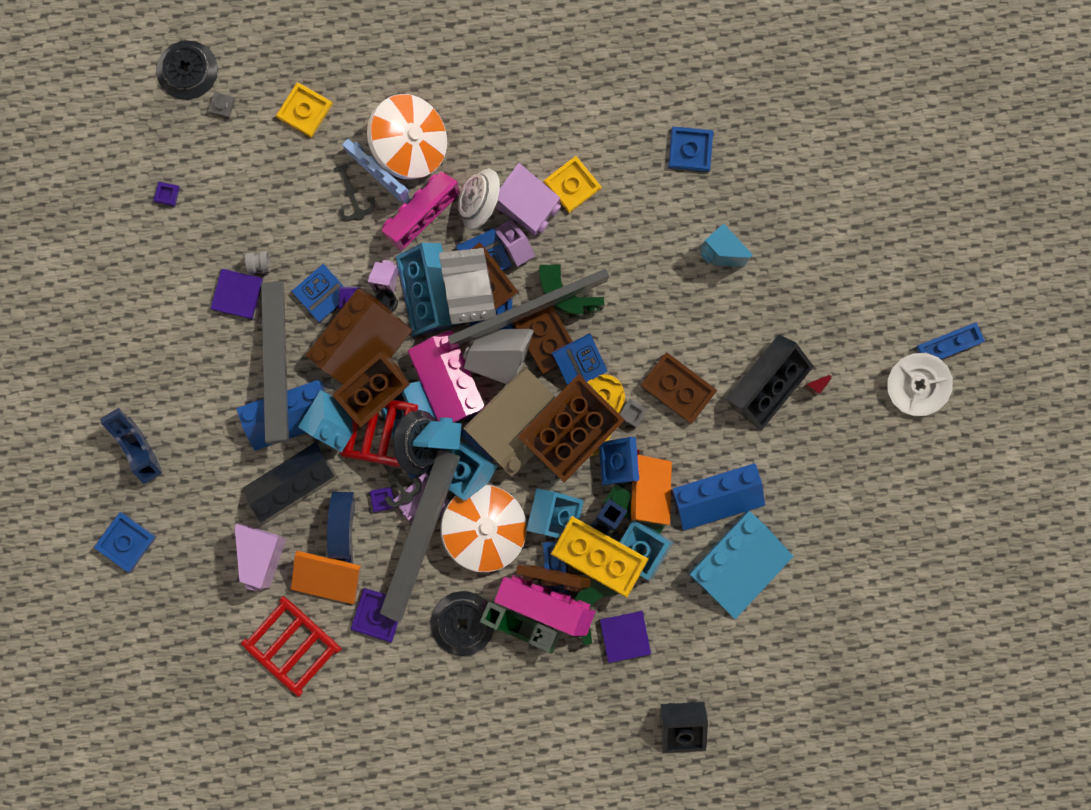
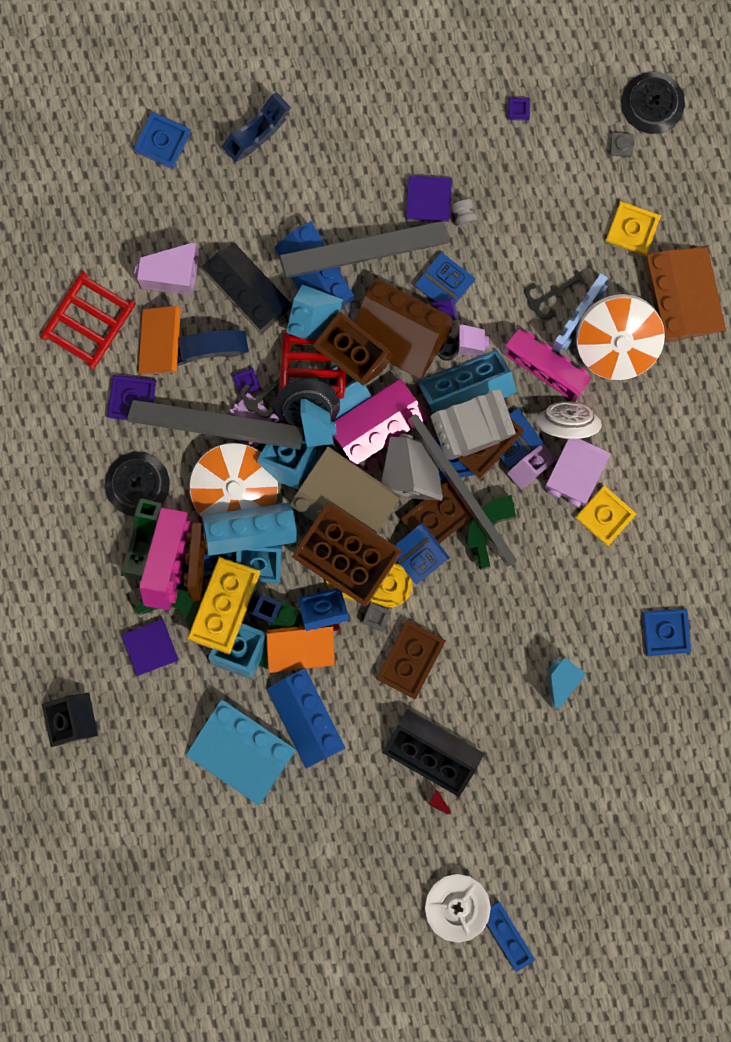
camera: 80 degrees right, 0 degrees up
(374, 73) = (684, 293): none -> dark orange slope
(529, 519) = (249, 528): none -> dark azure slope

